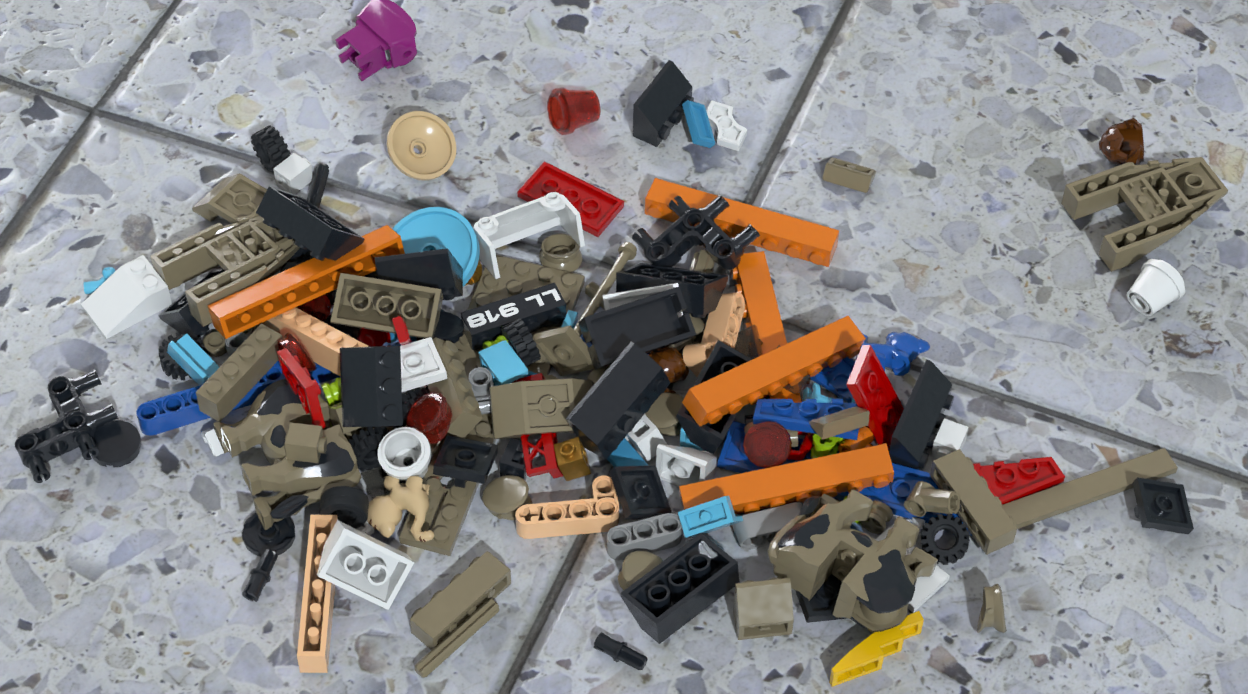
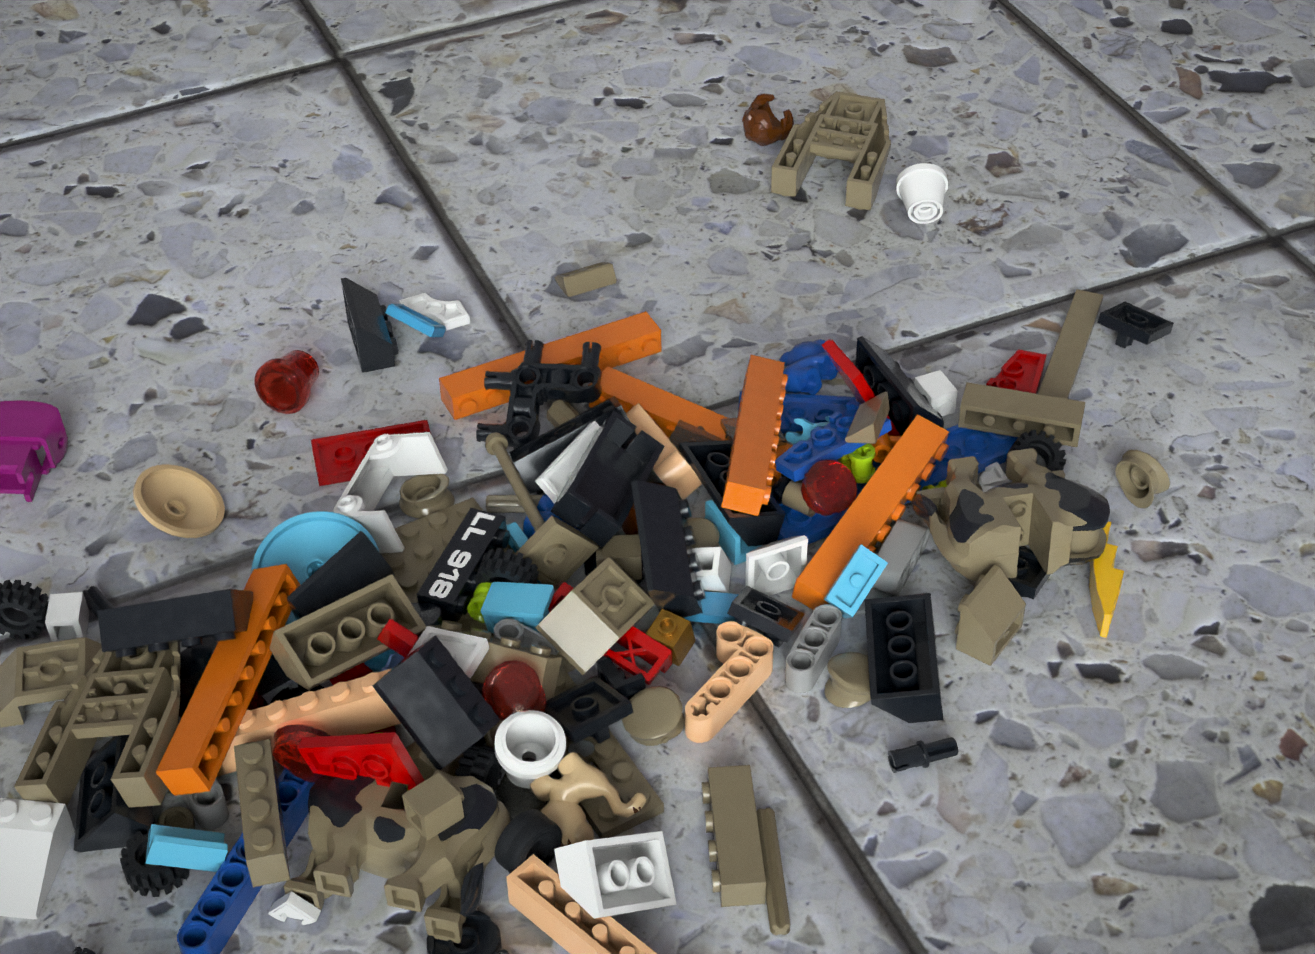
camera: 45 degrees left, 10 degrees down
(927, 498) = (987, 440): dark tan piece -> none

